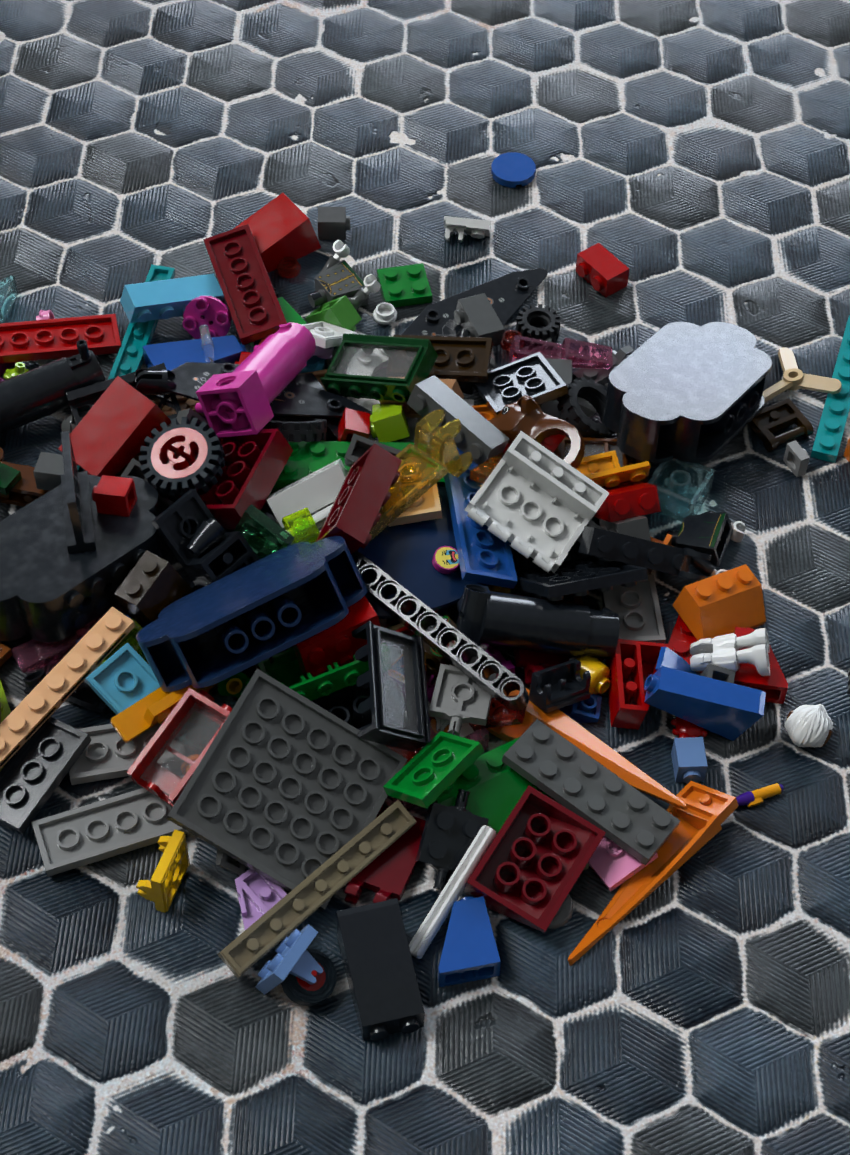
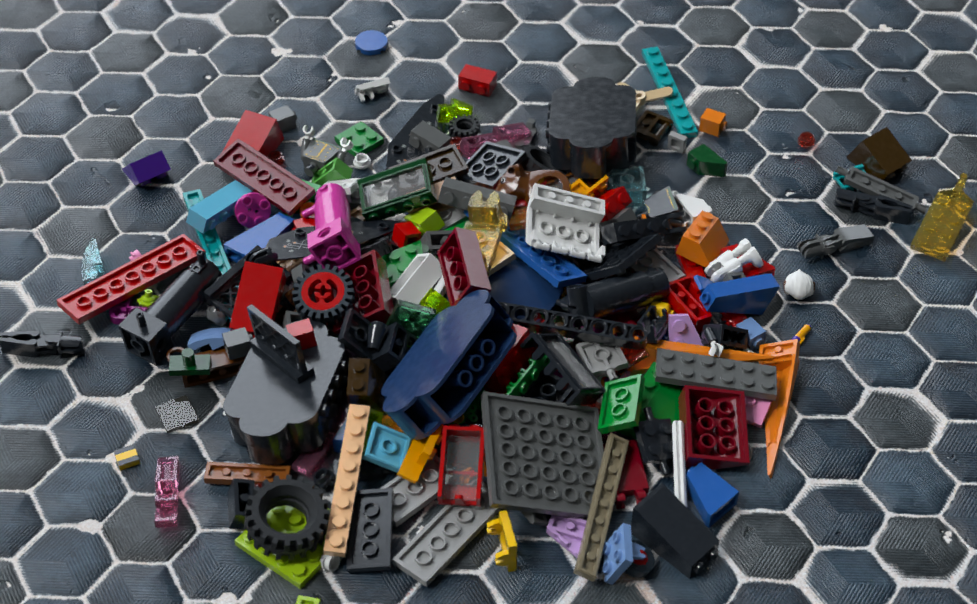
camera: 30 degrees left, 5 degrees down
(32, 449) = (208, 336): none -> medium blue slope
(136, 218) = (147, 168): none -> dark purple slope
(207, 343) = (267, 224): clear piece -> none
(445, 560) = (534, 282): tile -> none
(532, 294) = (456, 107): none -> clear neon green slope
(597, 714) = (682, 329): none -> lavender wing
(645, 748) = (724, 336): none -> black torso
(745, 551) = (691, 206): none -> white slope
(813, 501) = (706, 162): none -> dark green slope

